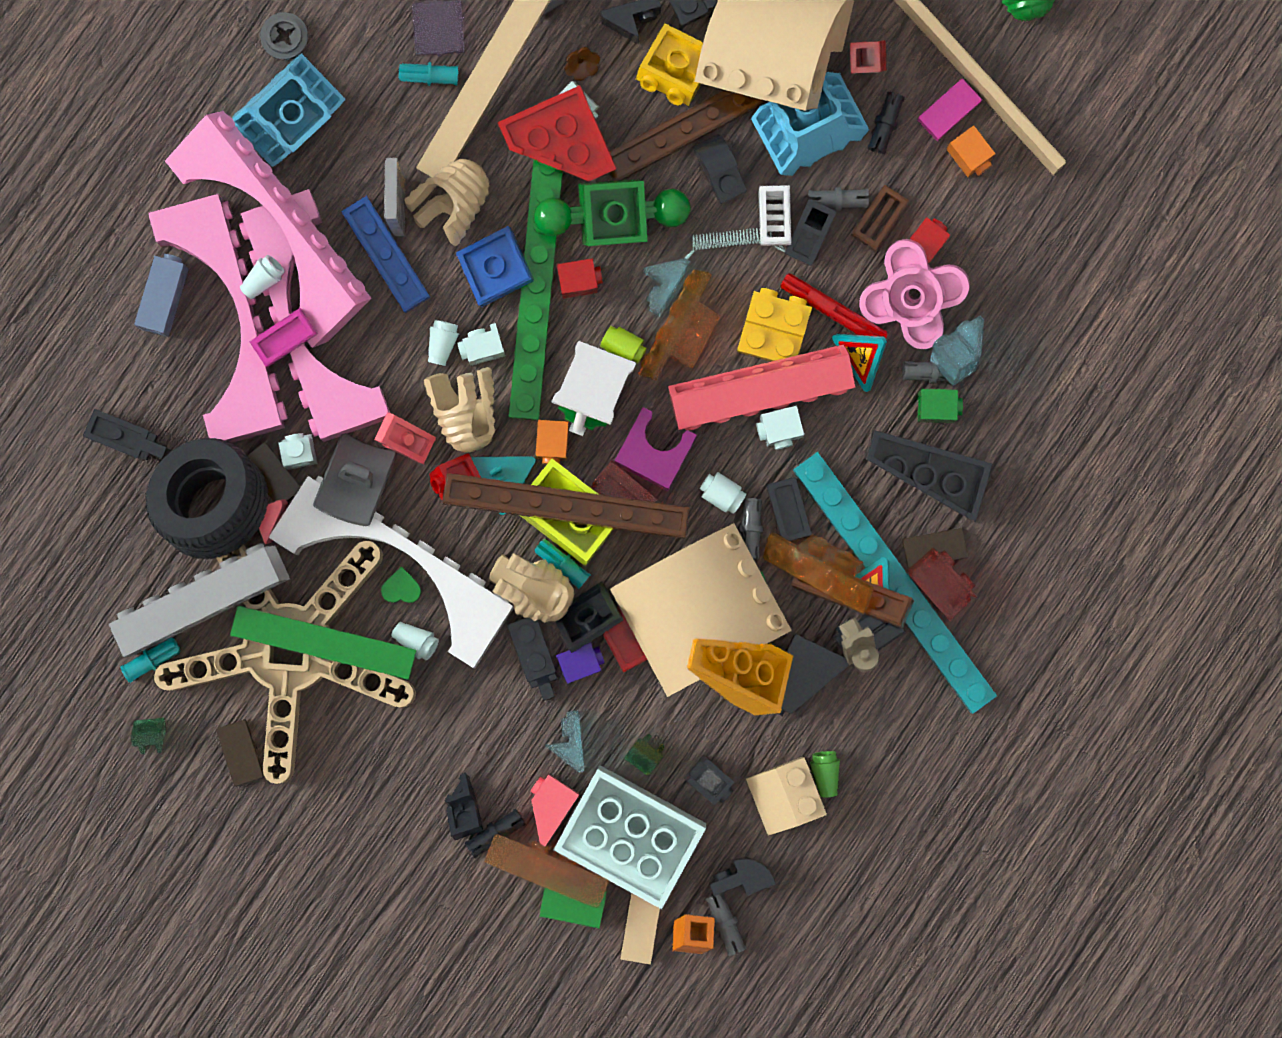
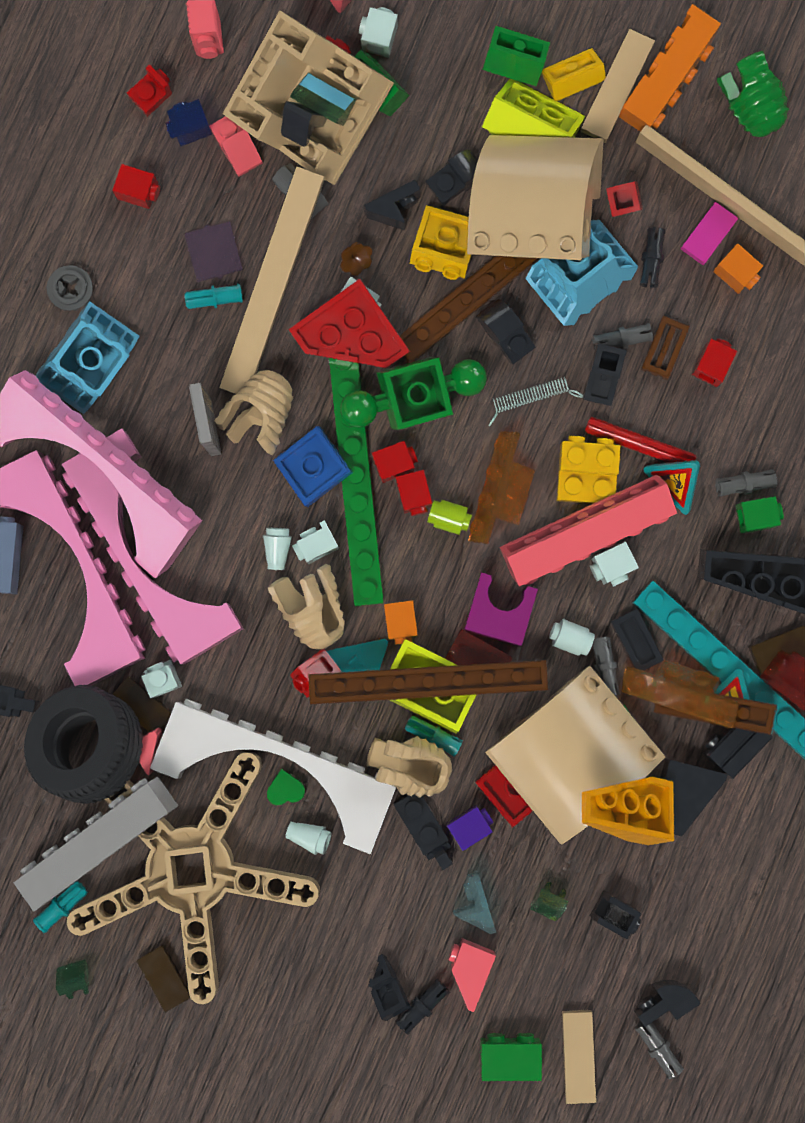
camera: 10 degrees left, 0 degrees up
(262, 276) = (94, 520): light aqua cone -> none
(283, 337) = (125, 574): dark pink tile -> none
(323, 642) = (222, 859): green tile -> none
(354, 481) = (221, 698): dark grey shield -> none
(385, 254) = (207, 475): blue tile -> none
(405, 438) = (261, 646): coral slope -> none
(545, 869) = (480, 1033): clear orange bracket -> none
(589, 617) = (471, 783): black slope -> none
(592, 314) = (414, 493): none -> red brick
(592, 387) = (430, 563): white piece -> none
(630, 837) = (553, 985): light aqua slope -> none
(669, 275) = (478, 442): clear light blue slope -> none
(693, 934) = (632, 1067): orange brick -> none
(774, 193) = (562, 344): white slope -> none
(786, 796) = (692, 915): tan slope -> none
(826, 772) = (724, 883): bright green cone -> none
(859, 646) = (736, 762): dark tan hips -> none
(920, 316) = (722, 433): bright pink plant -> none
(959, 352) = (770, 459): clear light blue slope -> none

